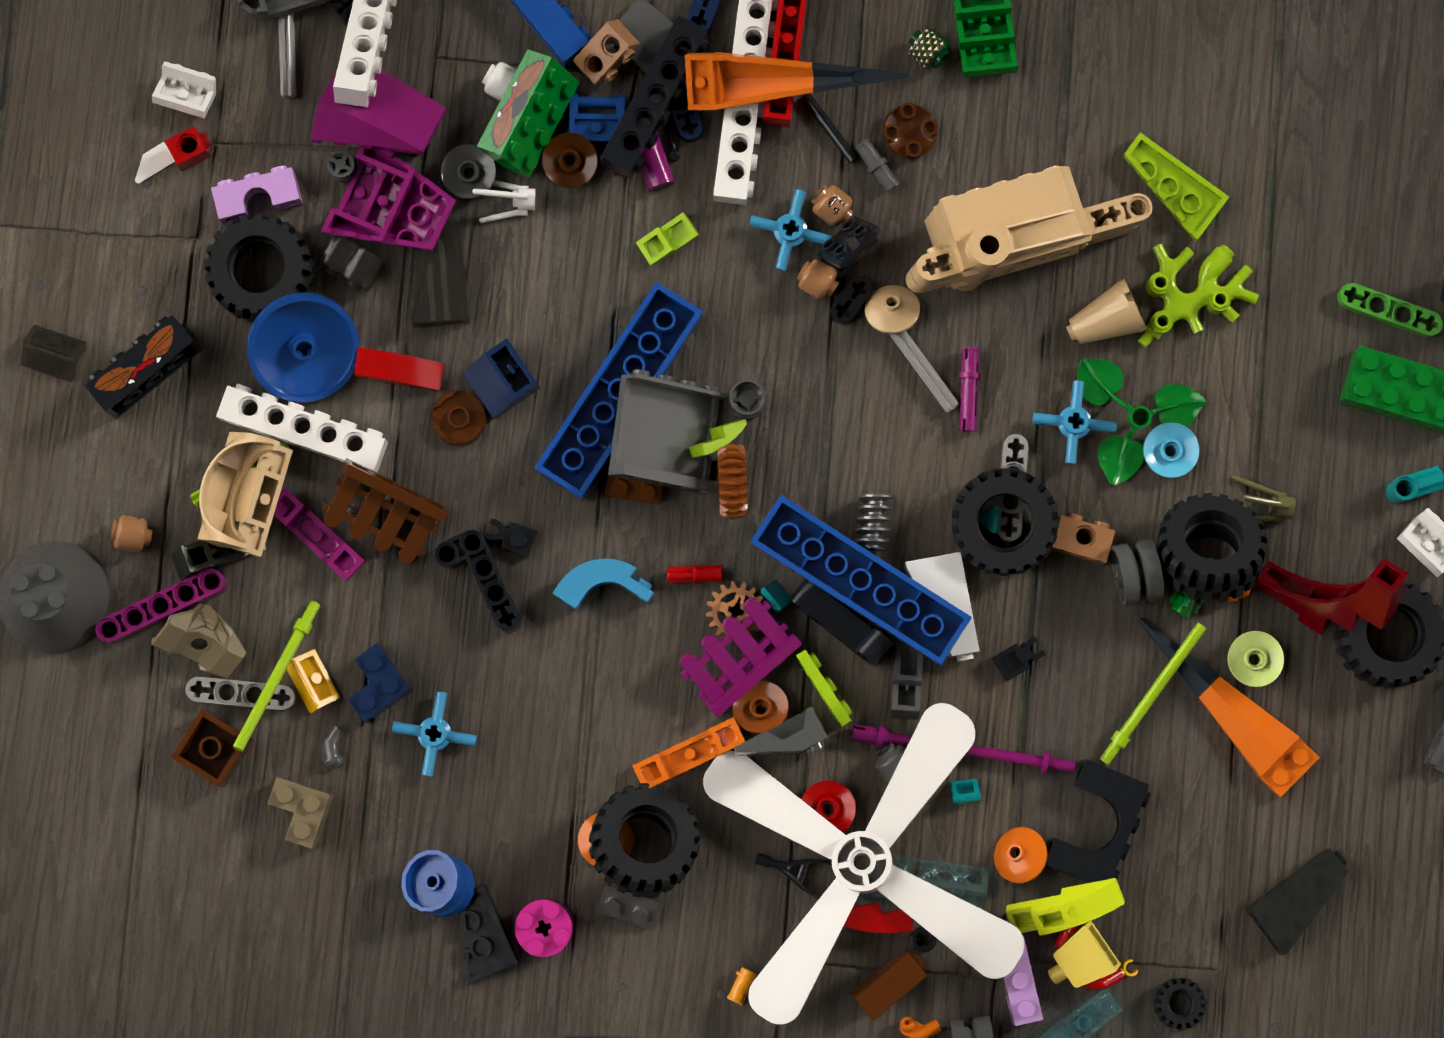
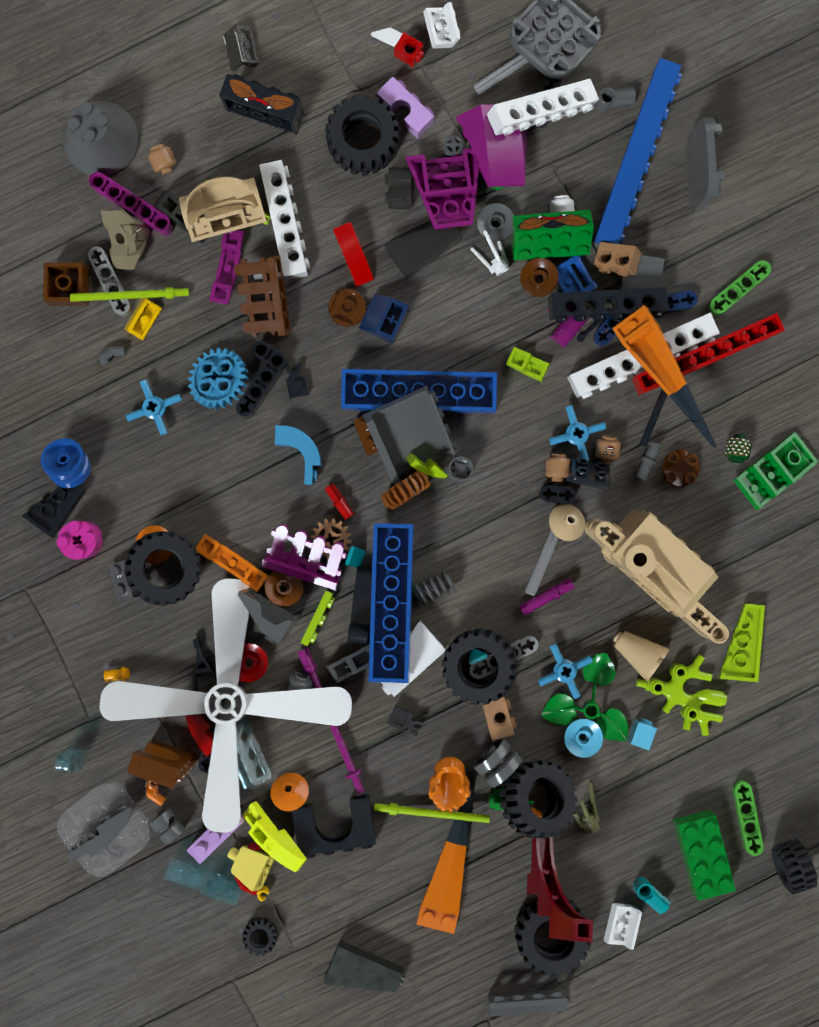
camera: 60 degrees right, 5 degrees up
(303, 347) = (330, 189): blue dish -> none
(309, 810) = (67, 359): dark tan brick -> none
(385, 686) = (164, 361): dark blue brick -> none
(429, 616) = (219, 362): none -> dark azure gear
(965, 791) = (308, 736): teal slope -> none
(1129, 649) = (449, 784): none -> orange hair
(1208, 375) = (642, 733): none -> medium azure brick
(1269, 655) = (493, 870): yellowish green dish -> none

